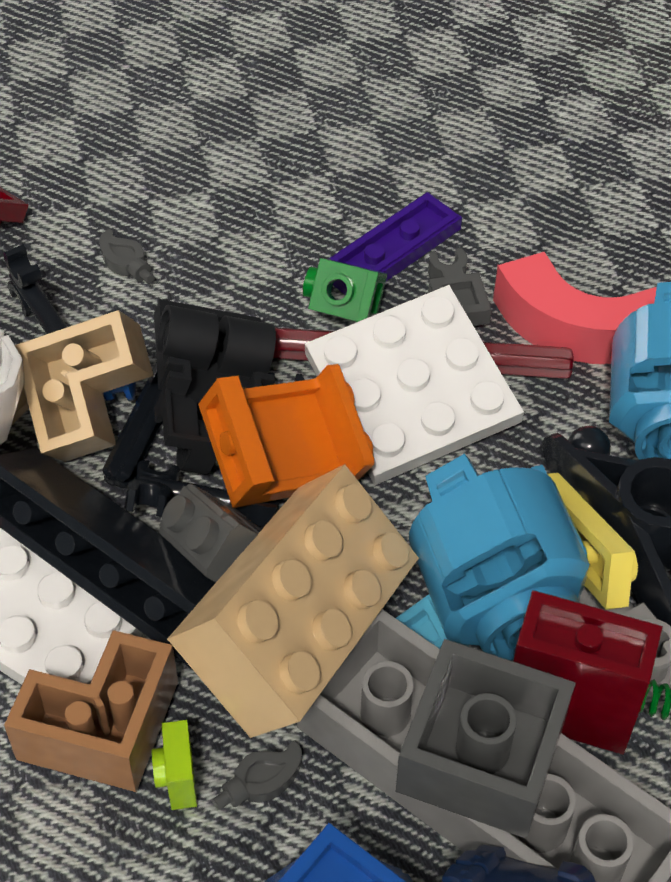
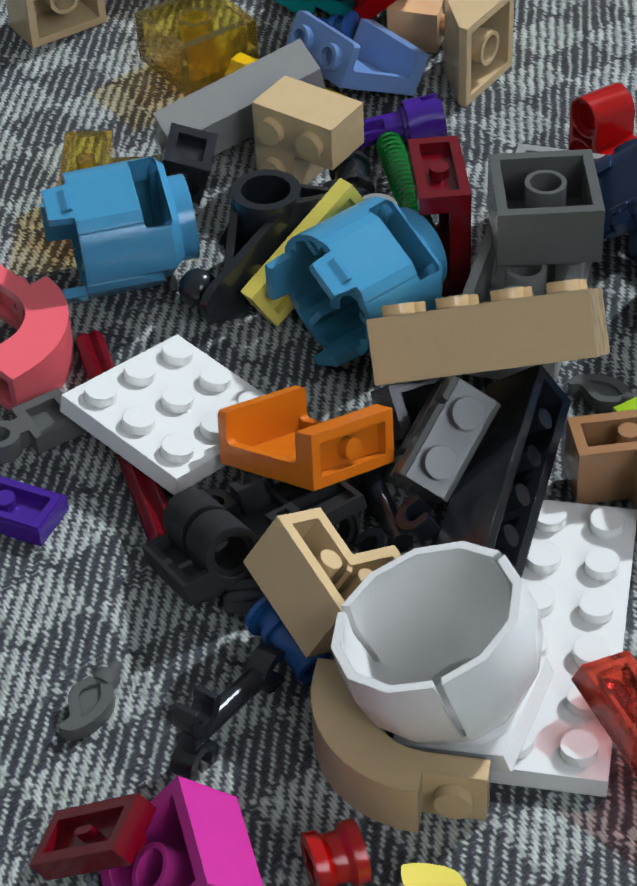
camera: 110 degrees left, 10 degrees down
(363, 290) = (82, 482): green brick -> none

